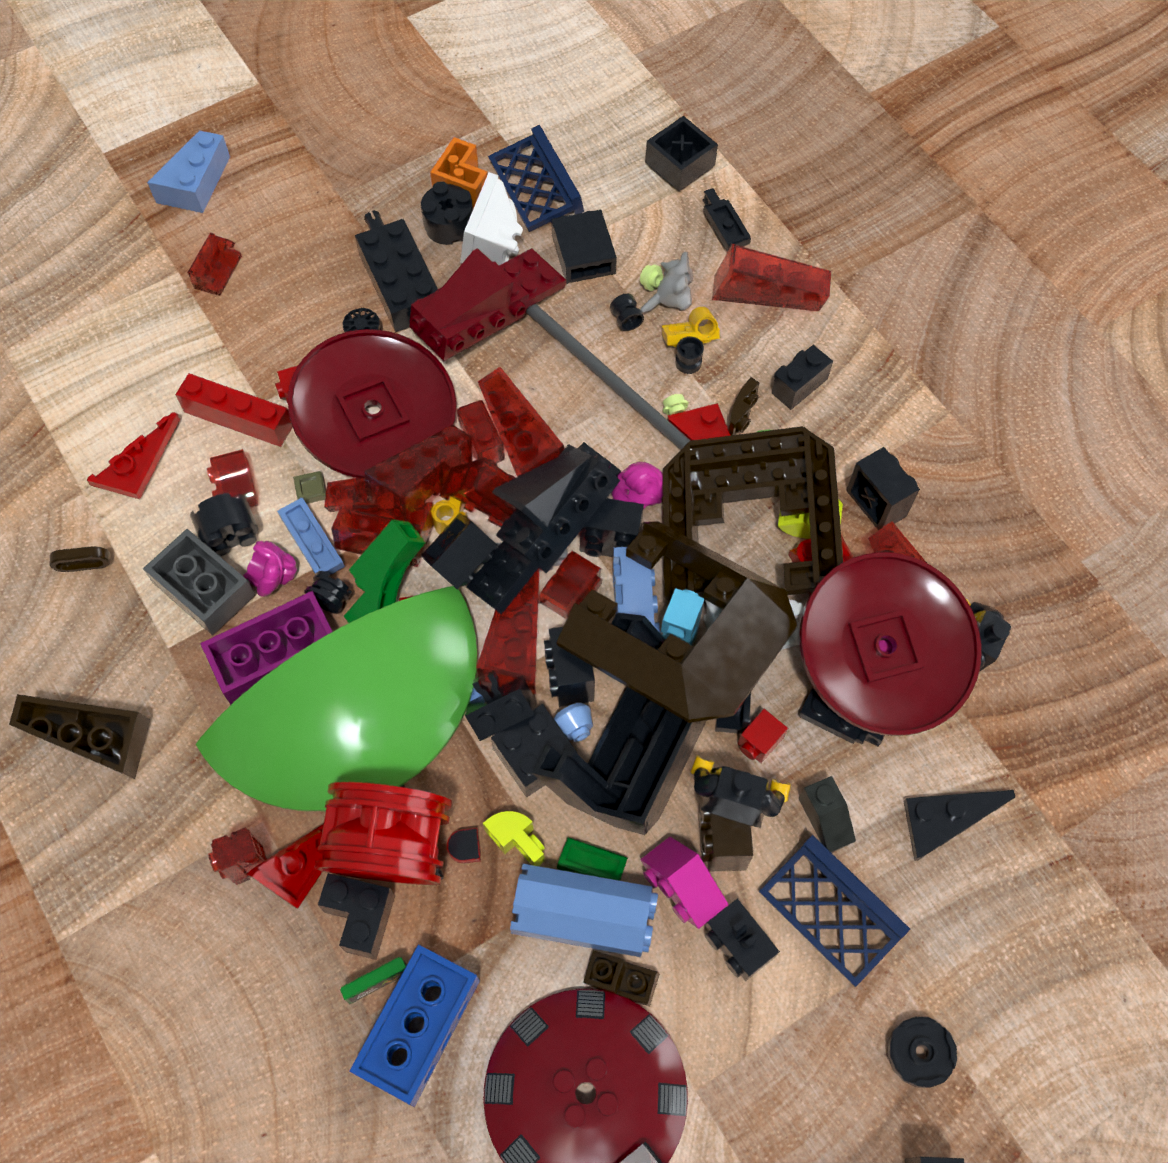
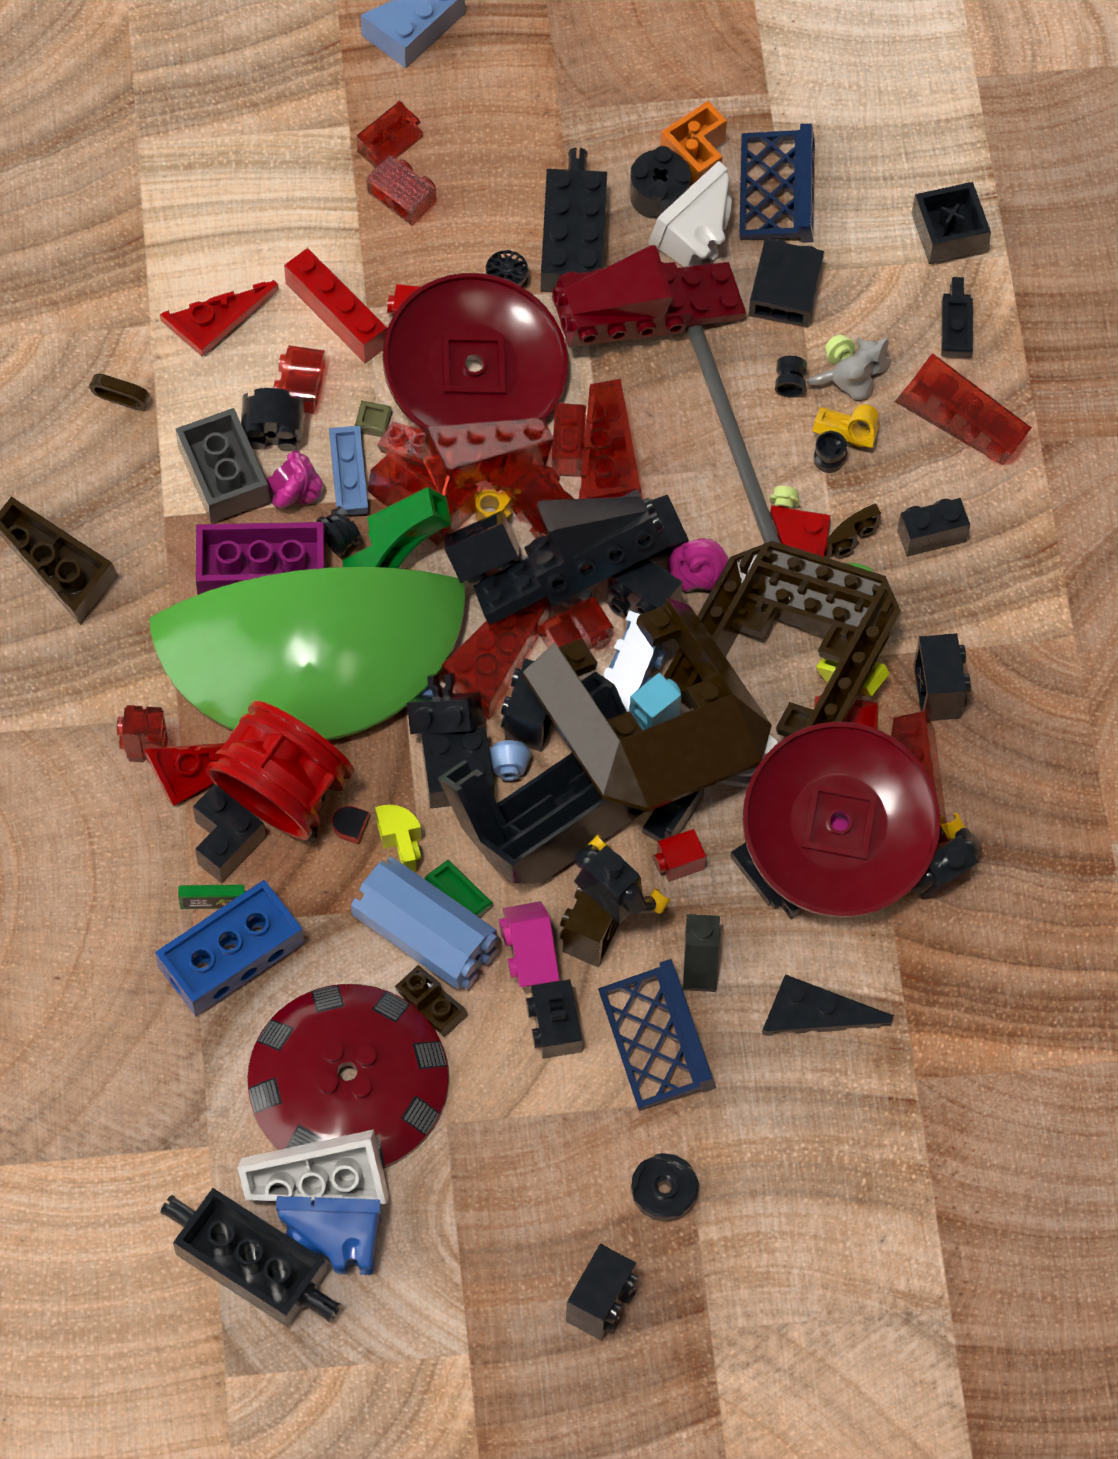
camera: 25 degrees right, 0 degrees up
(244, 300) = (401, 189): none -> clear red brick

